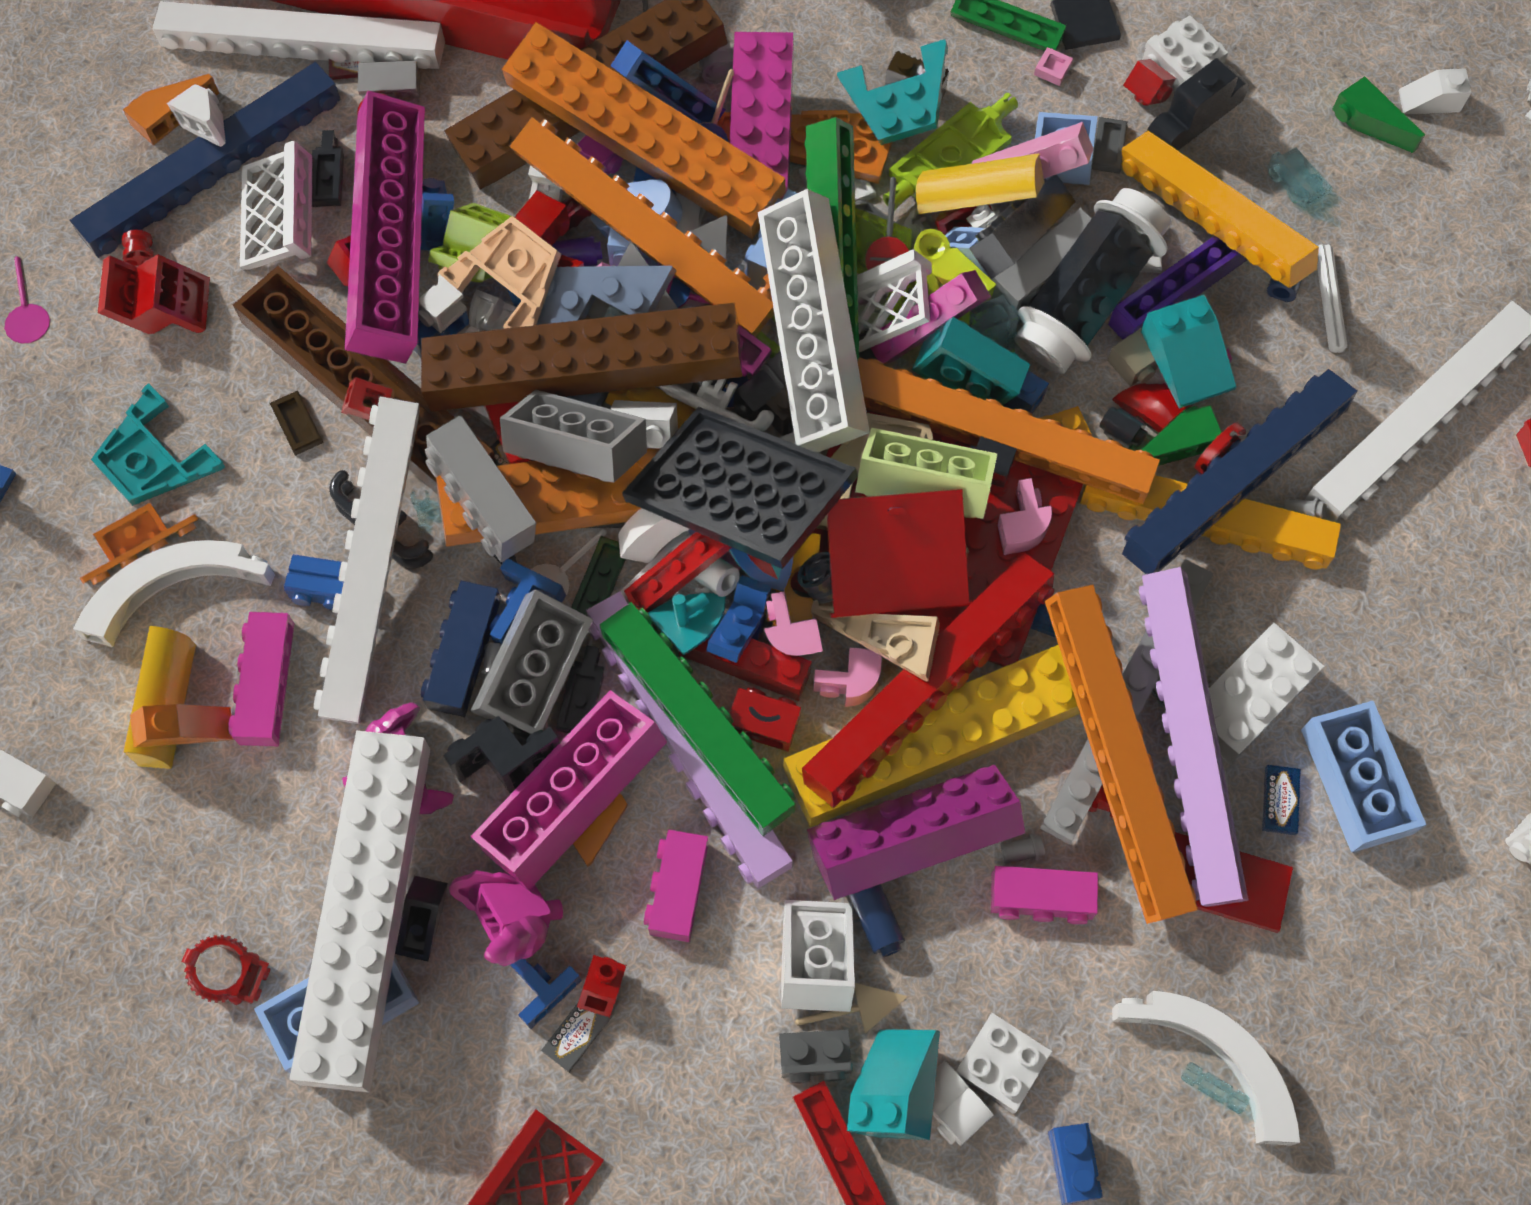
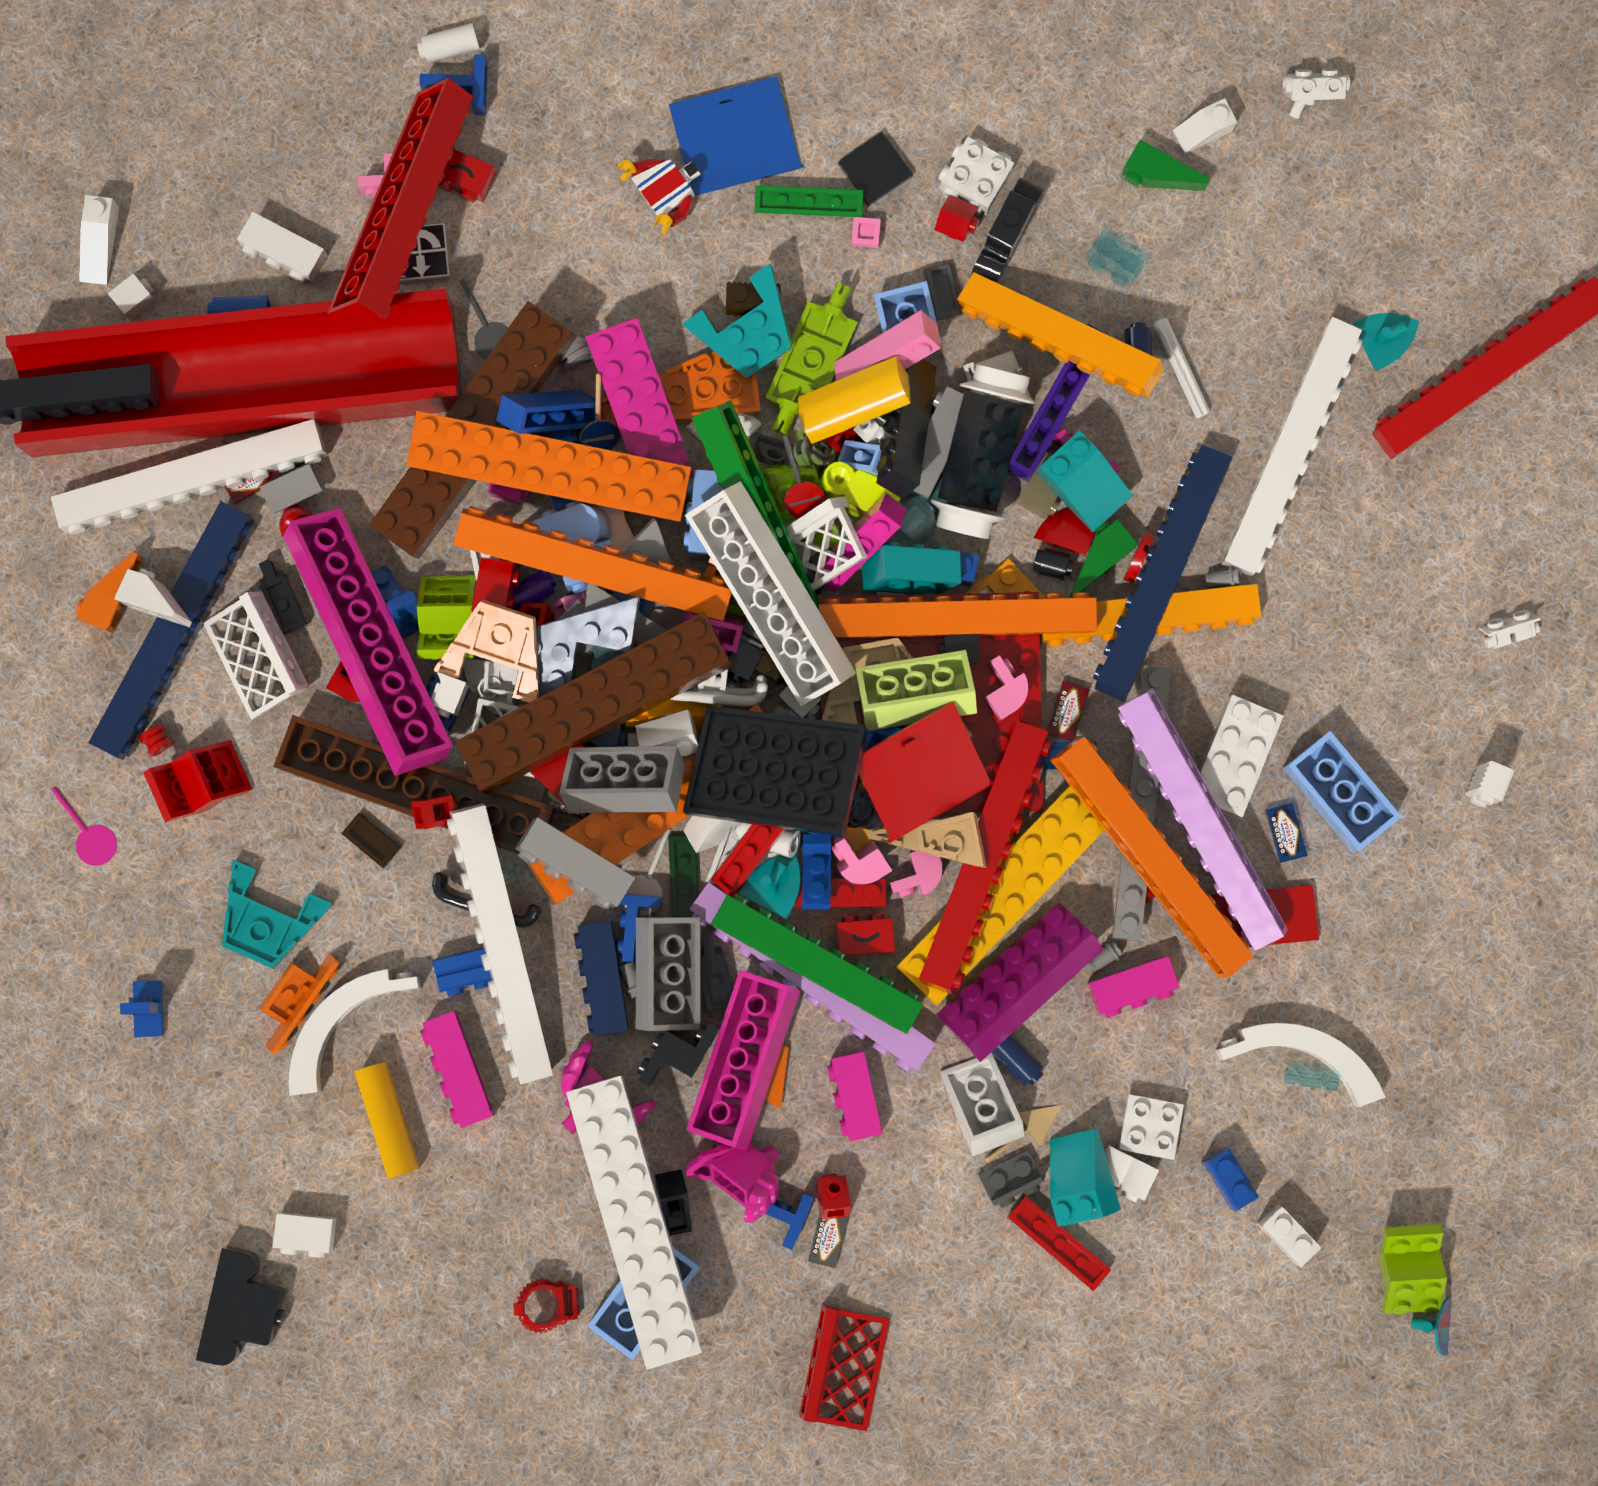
camera: 25 degrees left, 15 degrees up
(179, 724) = (418, 1138): orange slope -> none
(1087, 570) = (1067, 711): none -> tile

